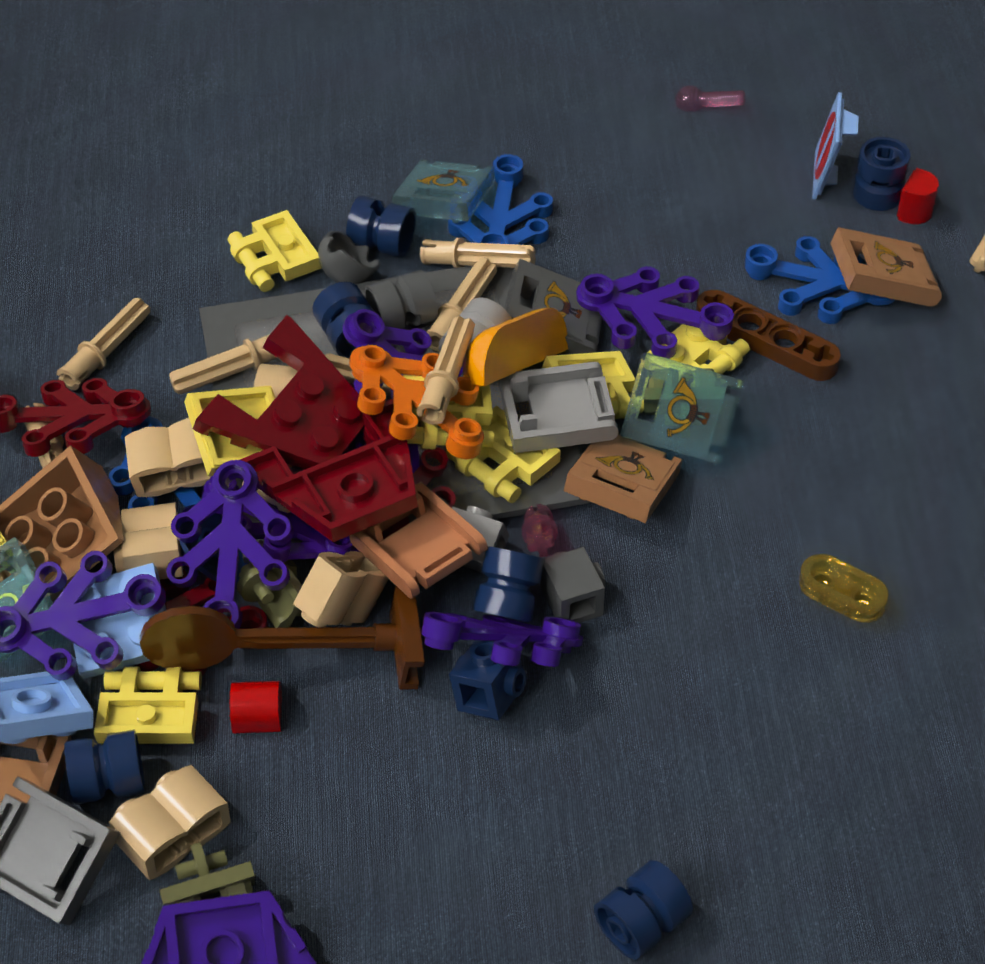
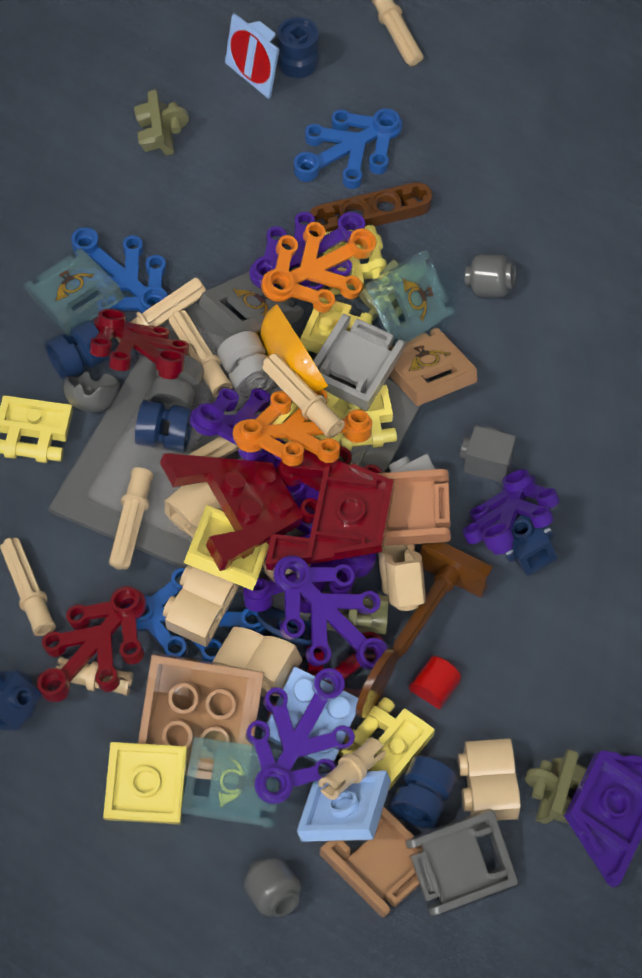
camera: 55 degrees left, 10 degrees up
(71, 679) = (352, 768): none -> tan pin
(398, 264) = (142, 338): none -> dark red plant
(508, 584) = (471, 488): dark blue wheel -> none
(539, 529) = (437, 440): clear pink axle -> none
(636, 316) = (315, 269): none -> orange plant
(689, 140) = (164, 122): none -> olive hips
(693, 99) = (111, 92): clear pink bar -> none
(789, 463) = (491, 275): none -> dark grey head
(844, 588) = (601, 319): clear yellow plate -> none
(892, 270) = (389, 102): medium nougat container -> none
(918, 197) = (332, 44): red brick -> none

